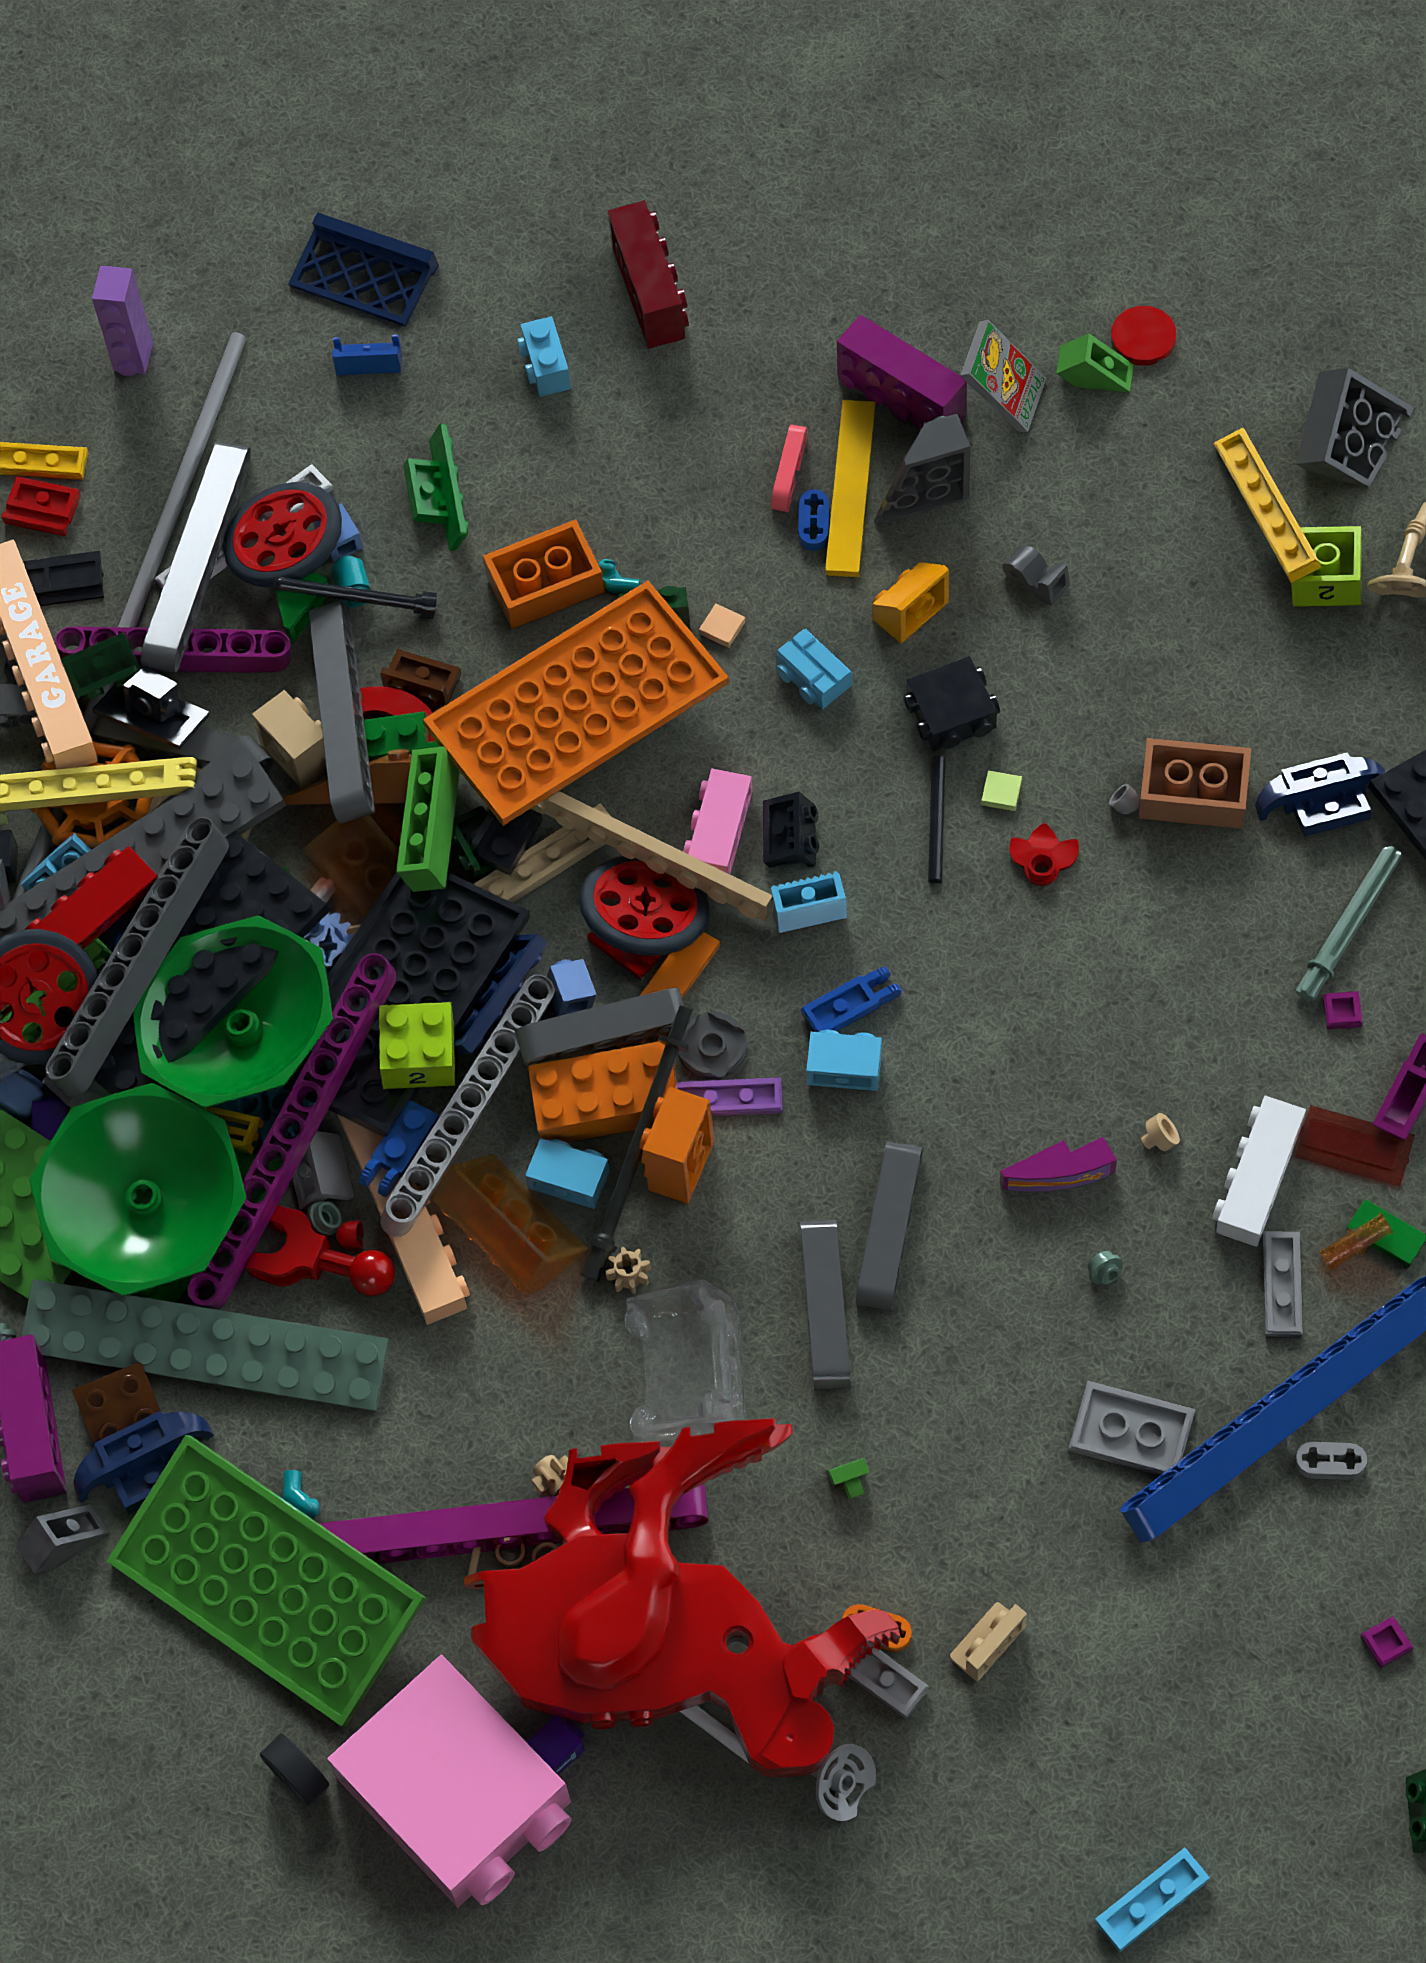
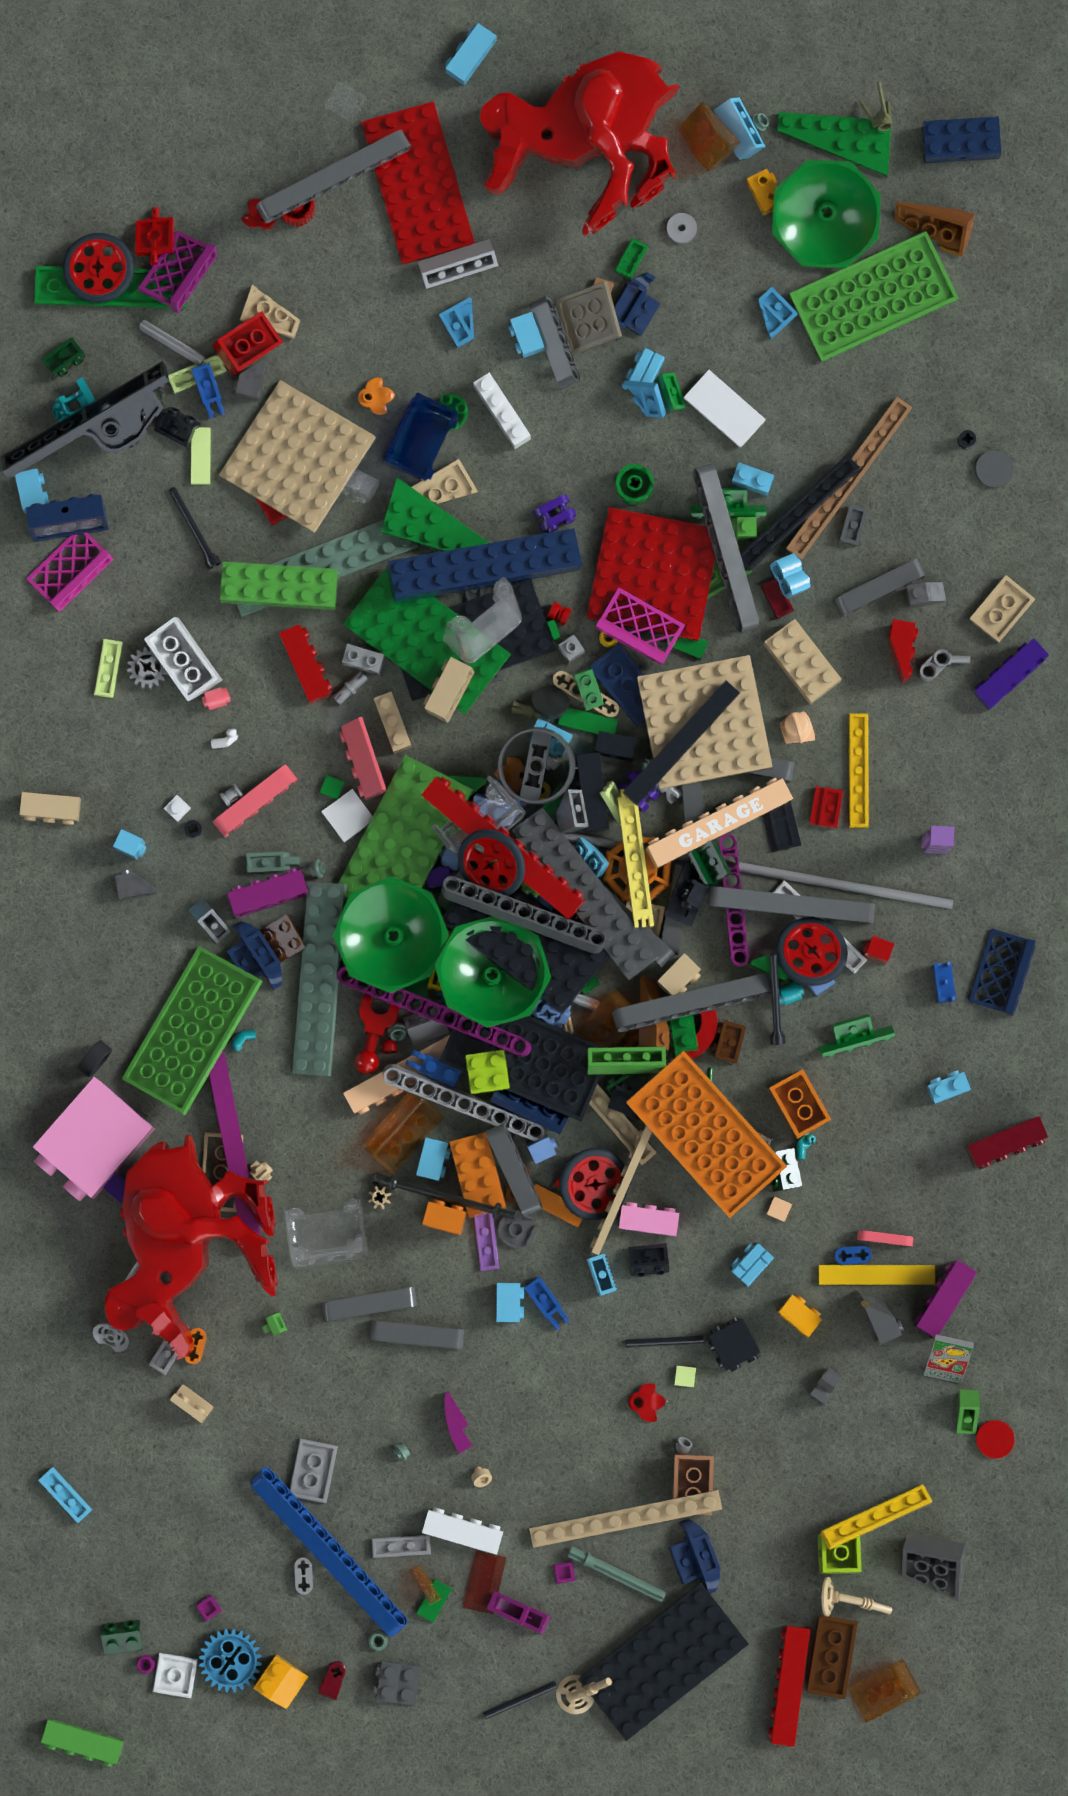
camera: 80 degrees right, 20 degrees up
(295, 435) = (878, 949): none -> red brick
(1250, 891) = (625, 1518): none -> tan plate

